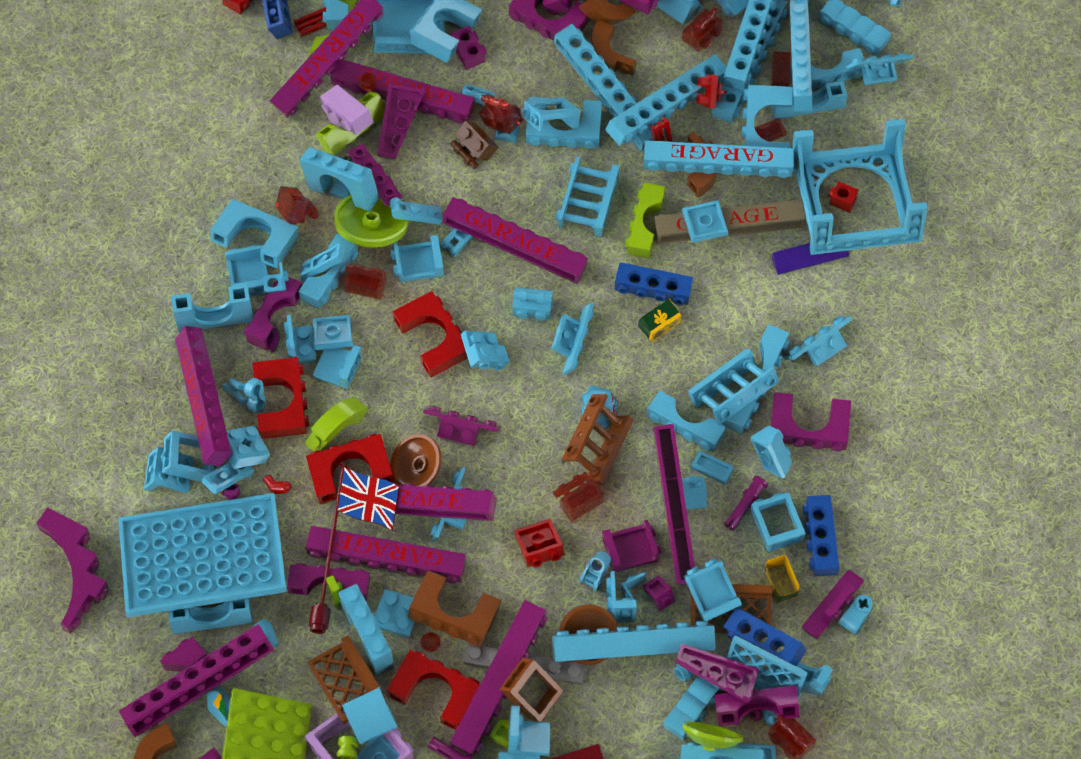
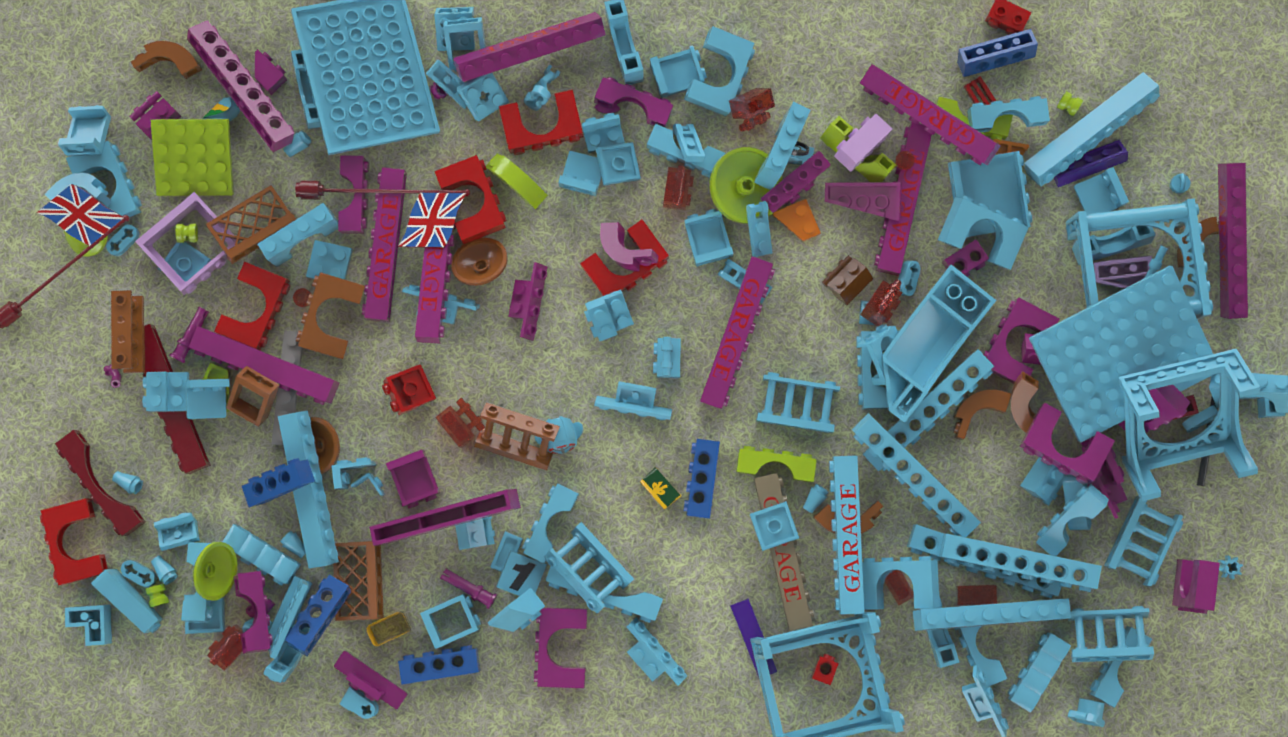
camera: 90 degrees right, 20 degrees up
(277, 487) = (448, 133): red arm -> none
(281, 278) = (662, 105): medium azure bracket -> none
(334, 589) = (338, 201): lime plate -> none
(369, 716) = (211, 248): medium azure slope -> none
(411, 181) = (799, 220): none -> orange wing
(425, 332) = (612, 240): none -> arch
(541, 74) = (931, 339): none -> medium azure slope
(594, 573) = (382, 447): medium azure piece -> none
(636, 696) = (278, 482): none -> blue brick
(657, 132) = (877, 470): red tile -> none
(660, 593) = (367, 510): magenta bracket -> none
(680, 191) = (815, 498): none -> medium azure cone
(702, 29) = (1015, 507): clear red brick -> none
(711, 589) = (363, 561): medium azure panel -> none
(712, 93) = (931, 523): red hips -> none
(722, 672) = (278, 579): magenta wing -> none
(735, 453) = (520, 574): none -> medium azure tile

